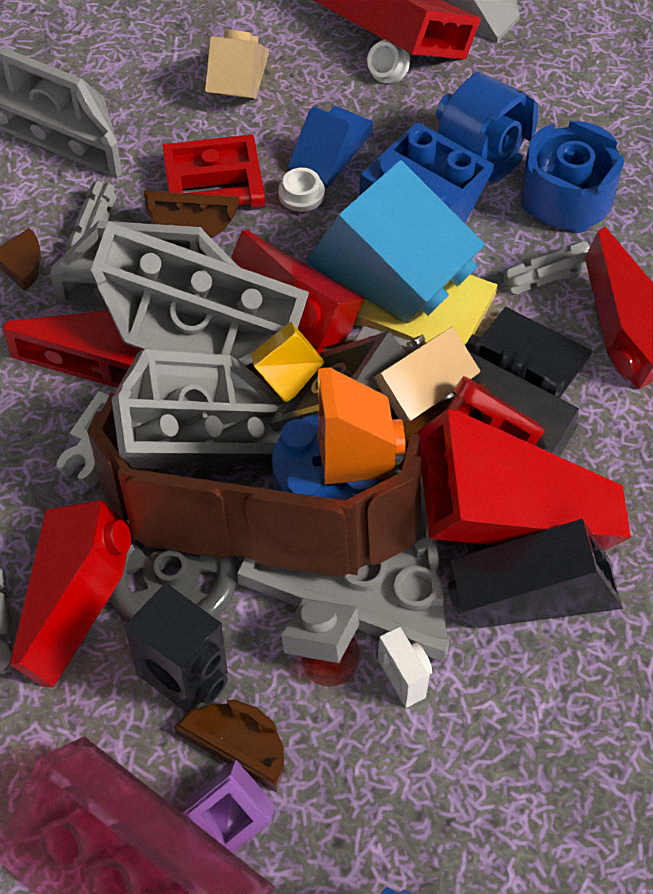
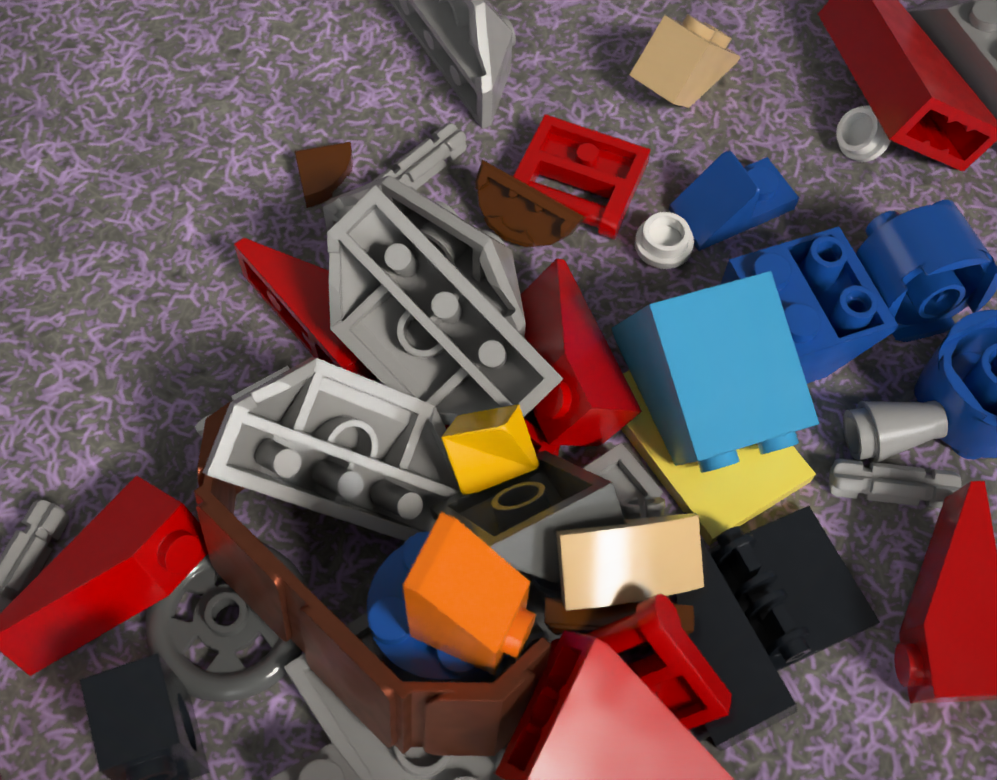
camera: 30 degrees right, 5 degrees up
(525, 233) = (891, 427): none -> light grey cone

